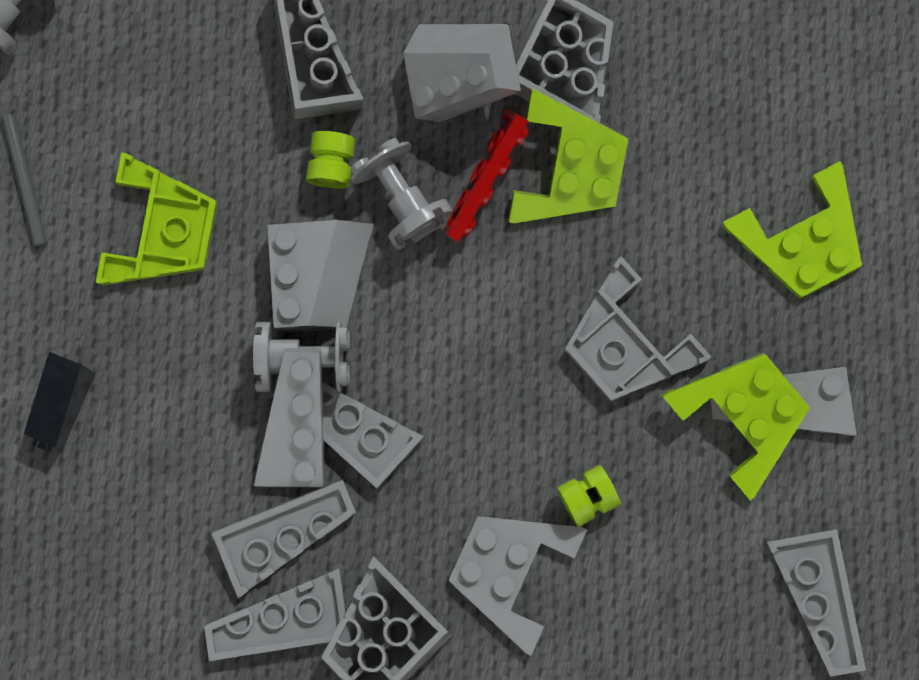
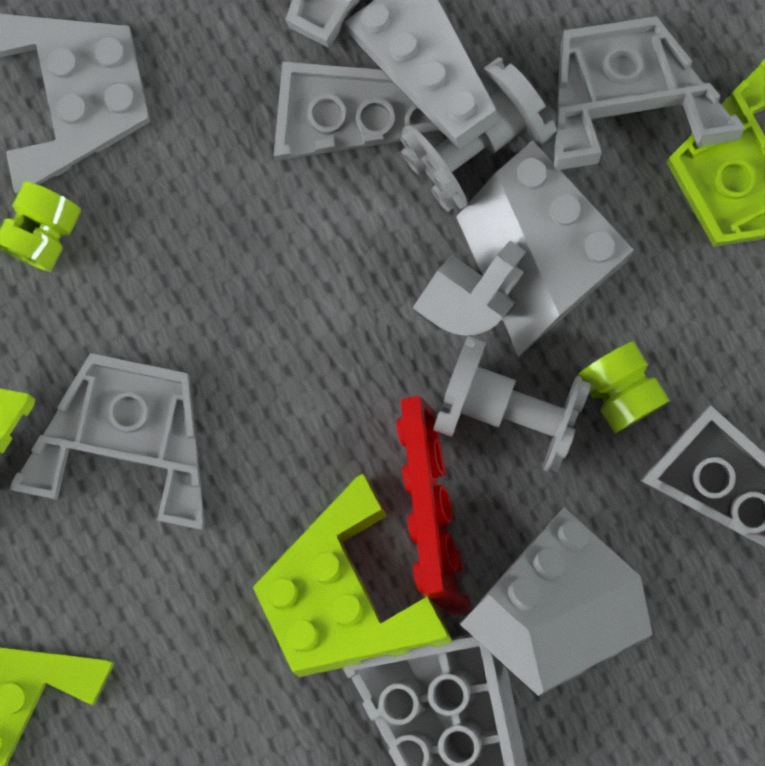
camera: 140 degrees right, 0 degrees up
(189, 334) = (627, 71): none -> light grey wing
(378, 268) = (465, 300): none -> light grey brick

